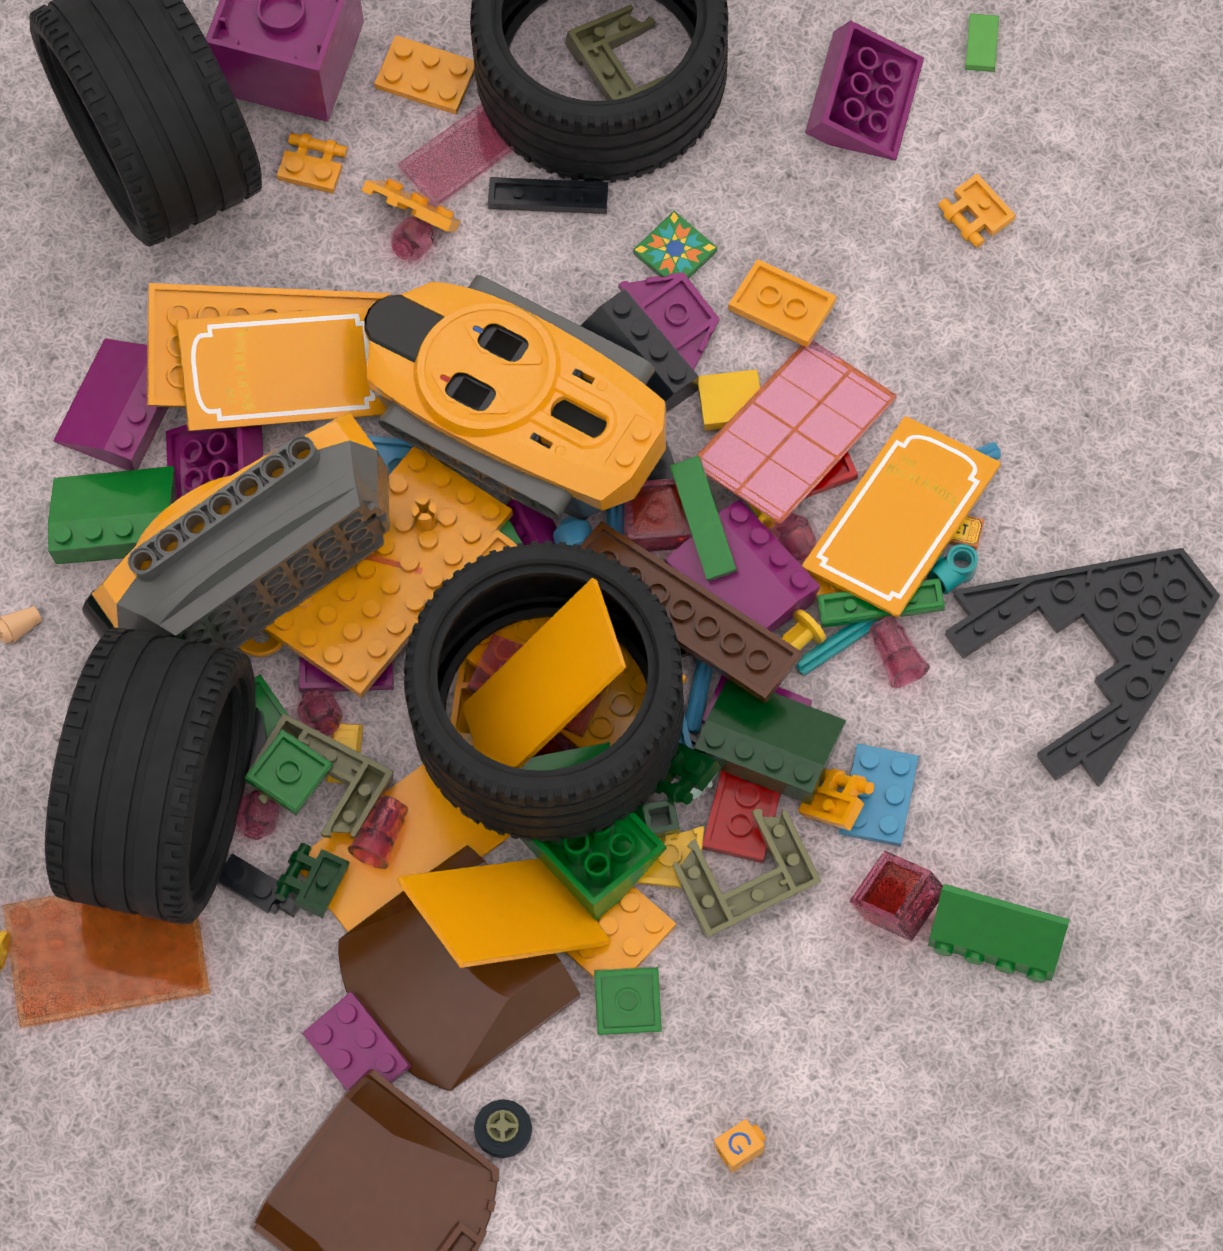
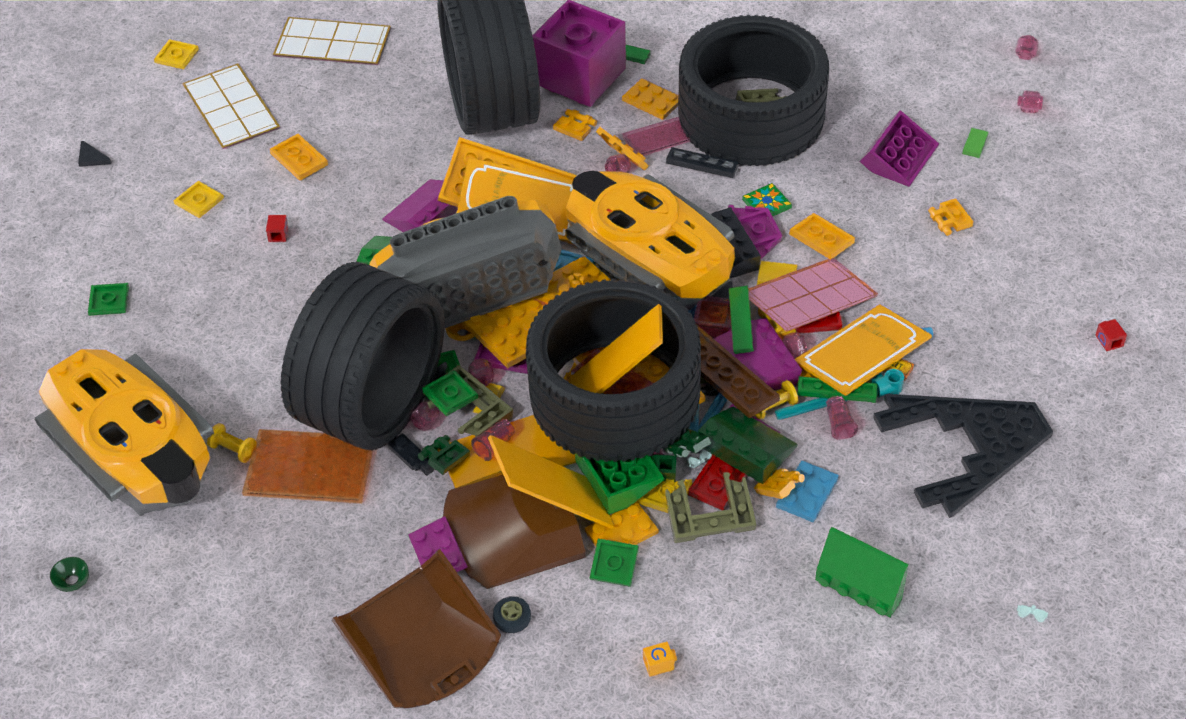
camera: 15 degrees right, 20 degrees down
(897, 895) = (801, 541): clear pink piece -> none

